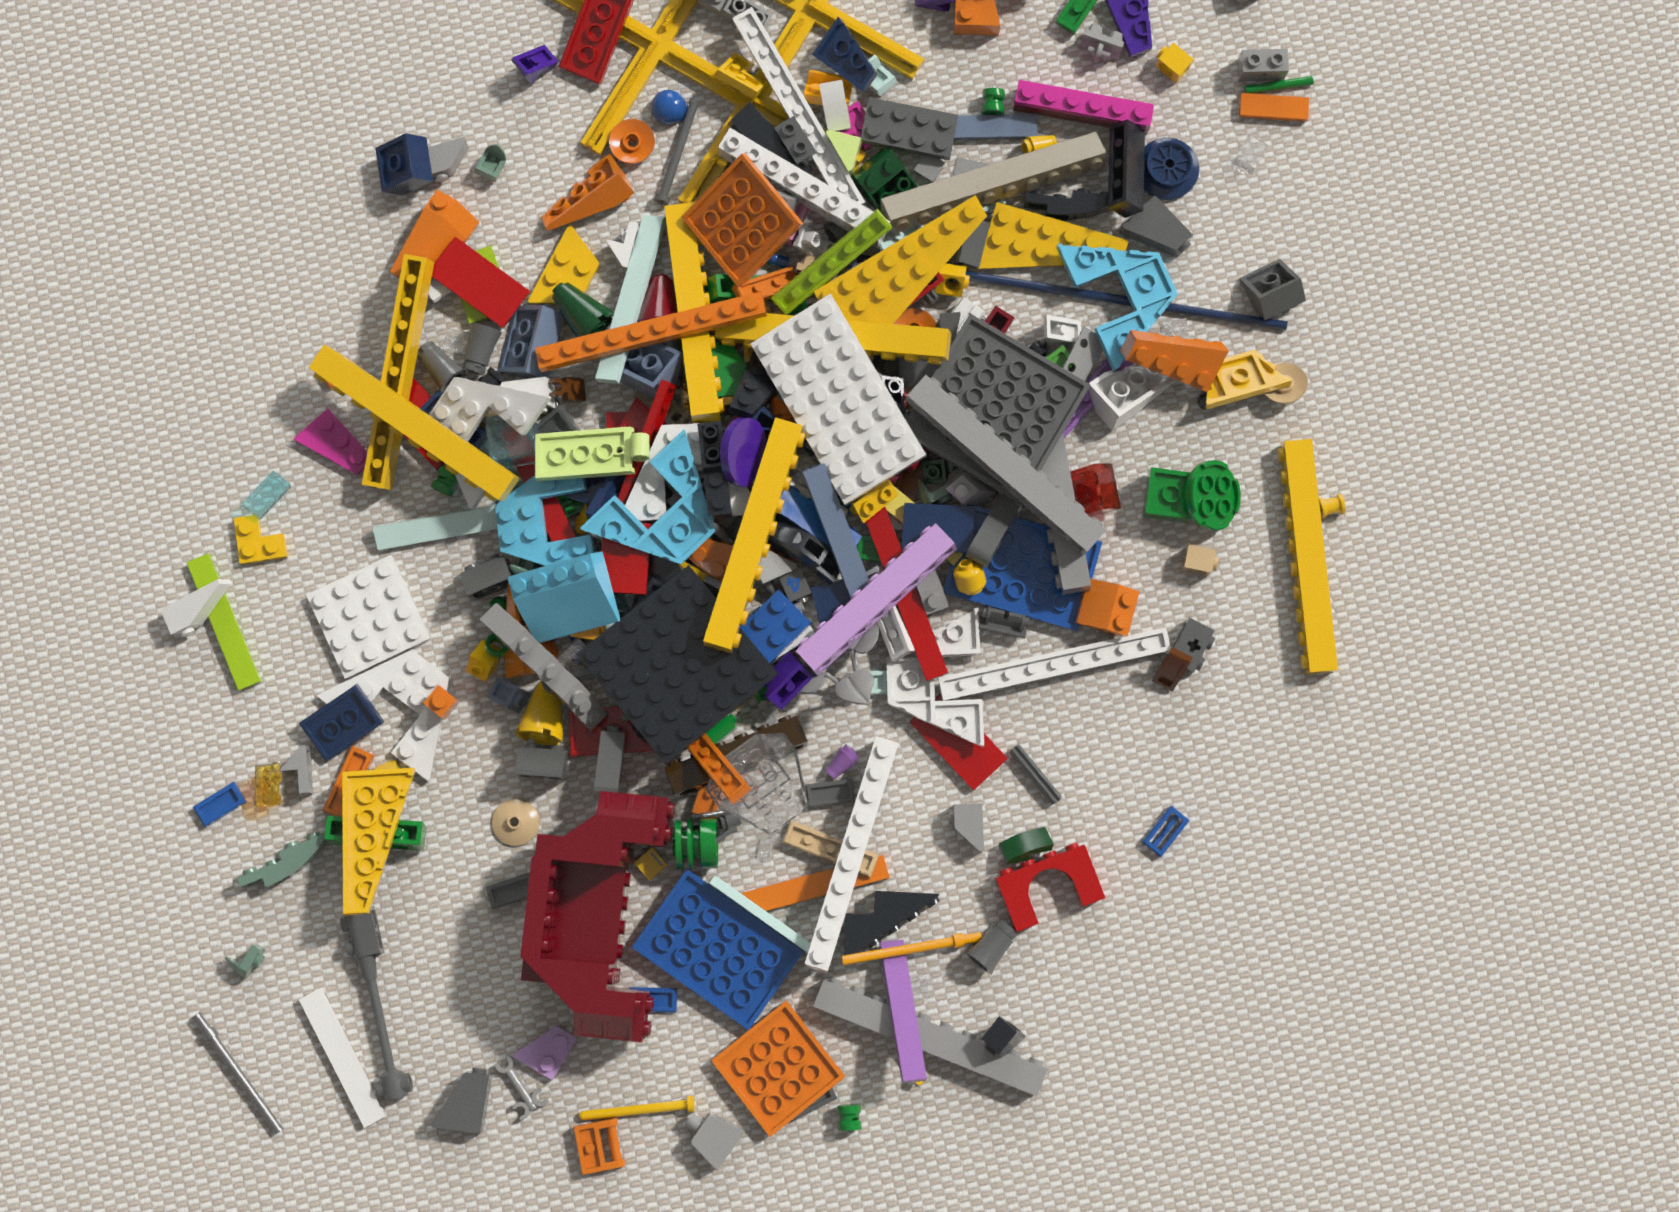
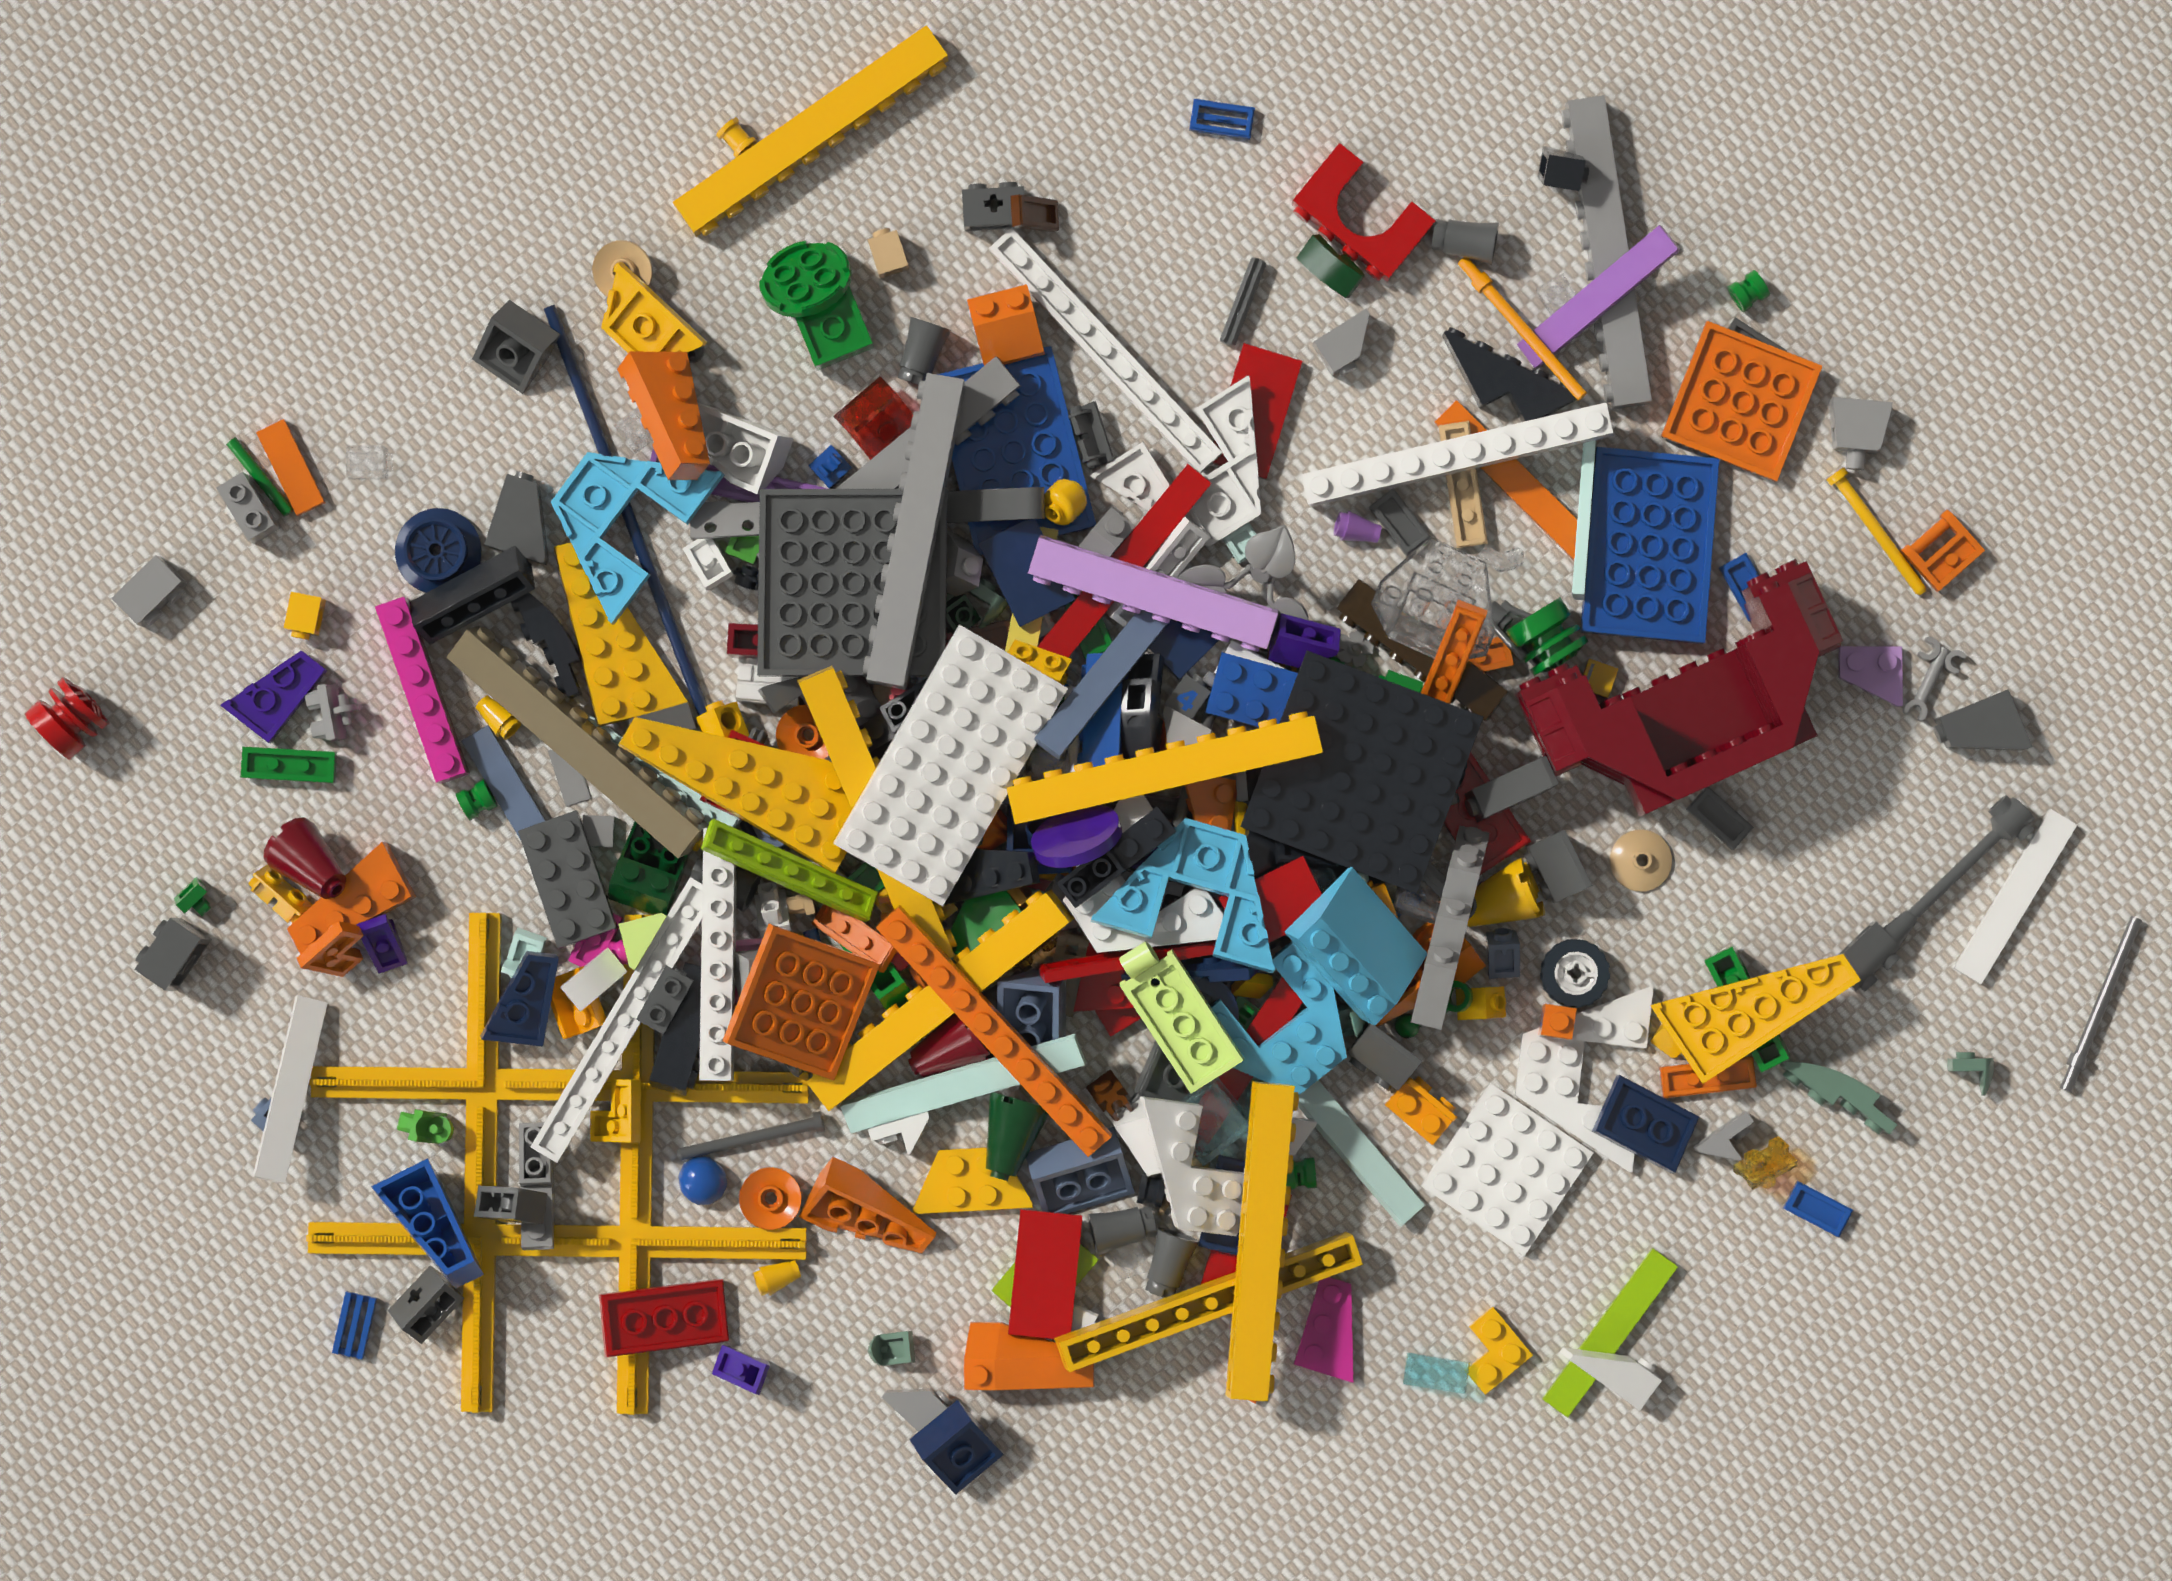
camera: 110 degrees left, 5 degrees up
(439, 584) = (1421, 1110): none -> light orange bracket
(454, 729) = (1562, 986): none -> black wheel
(580, 117) = (776, 1276): none -> yellow cone
(1079, 445) = (830, 467): none -> blue tile
(1123, 545) = (921, 350): none -> dark grey plant

